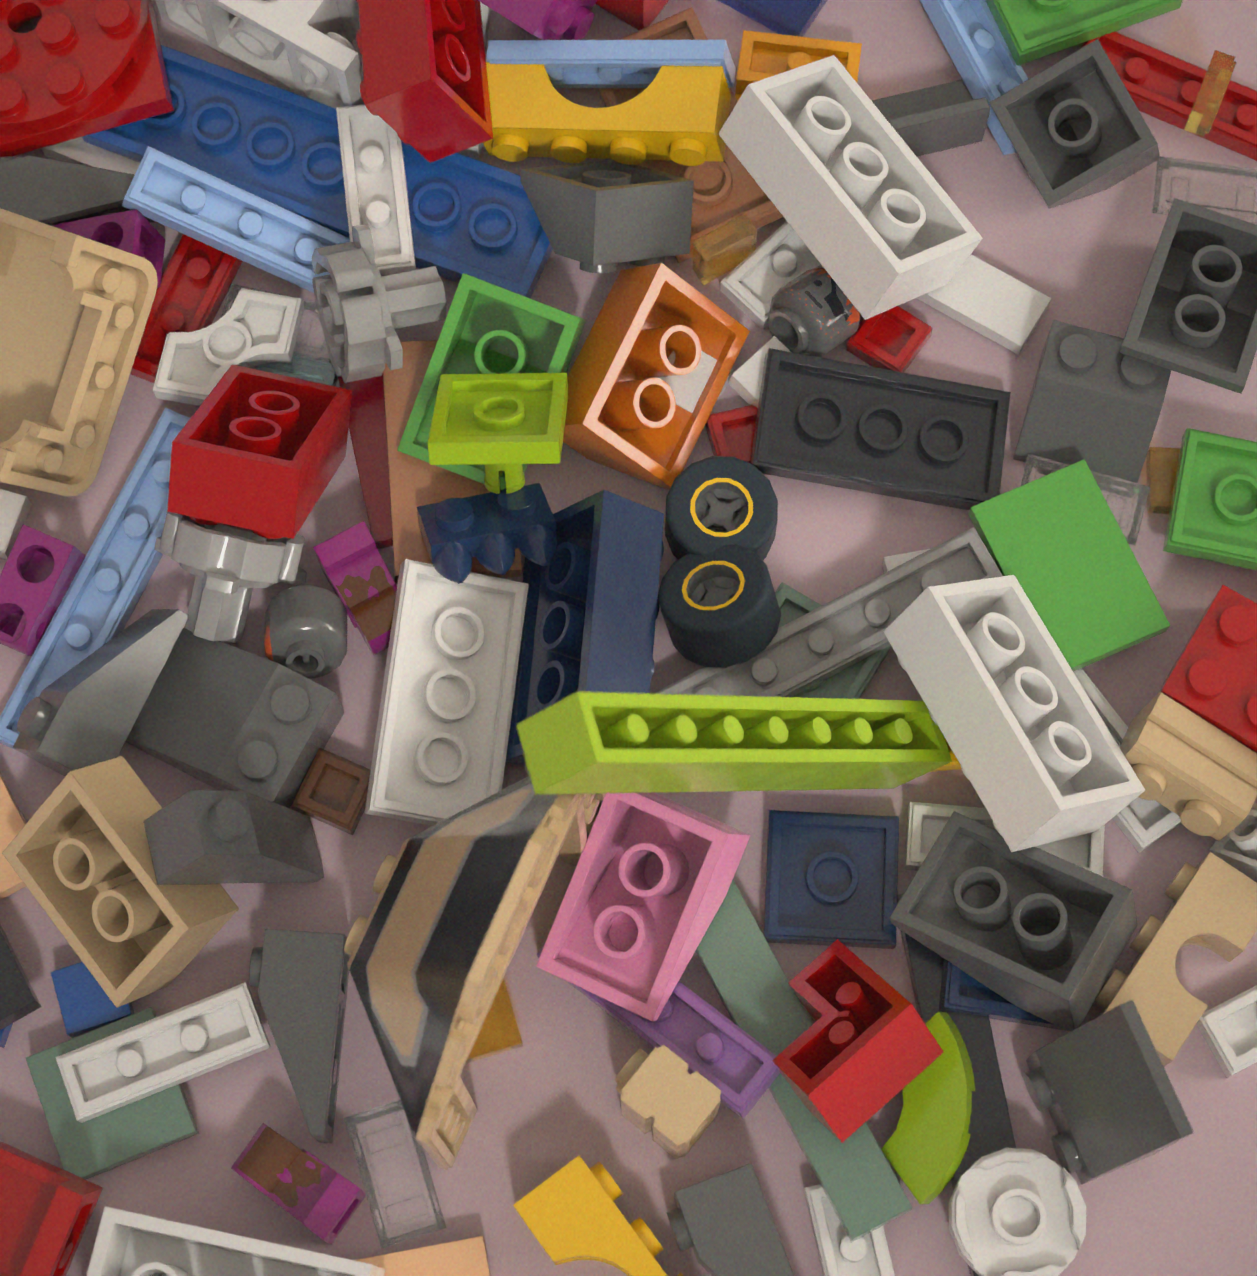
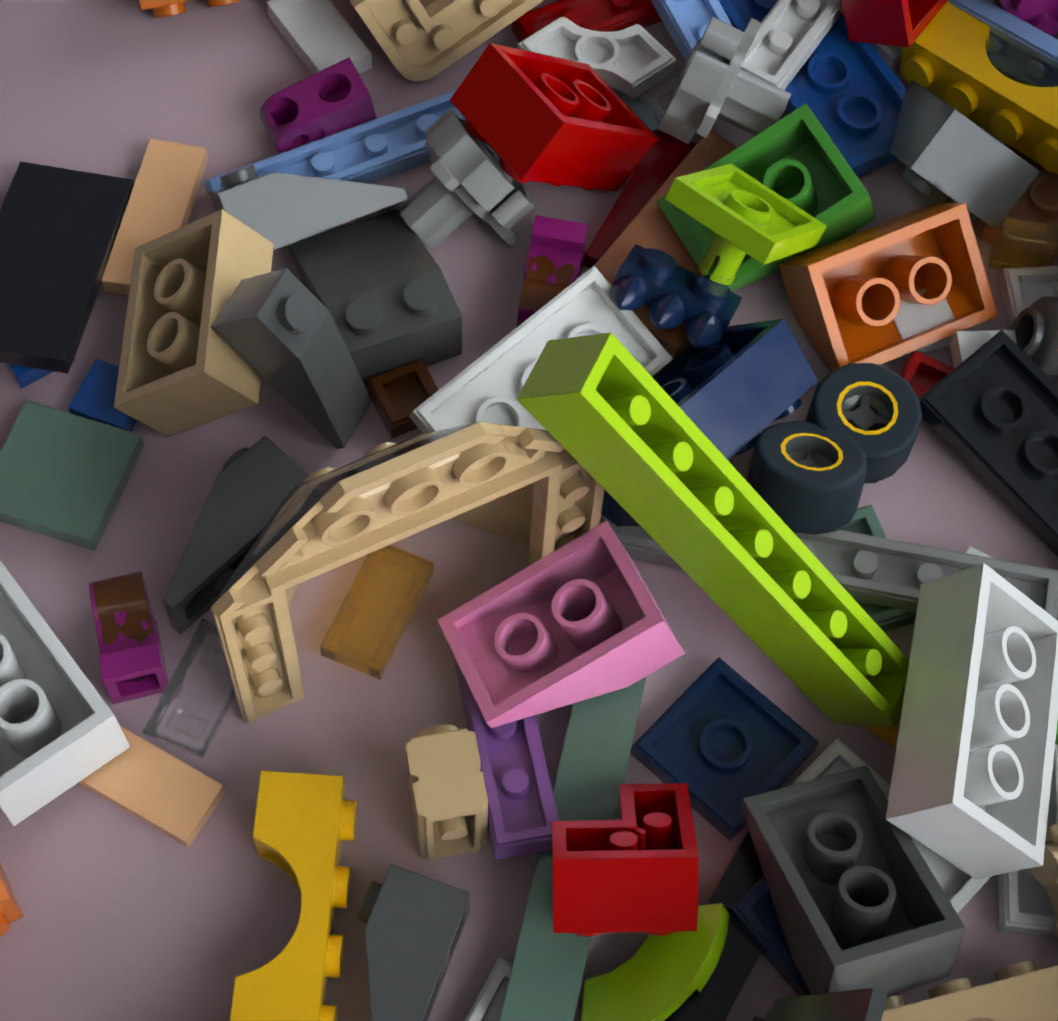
camera: 35 degrees right, 10 degrees down
(162, 1052) = (118, 468): white tile -> none
(306, 630) = (482, 268): dark grey head -> none

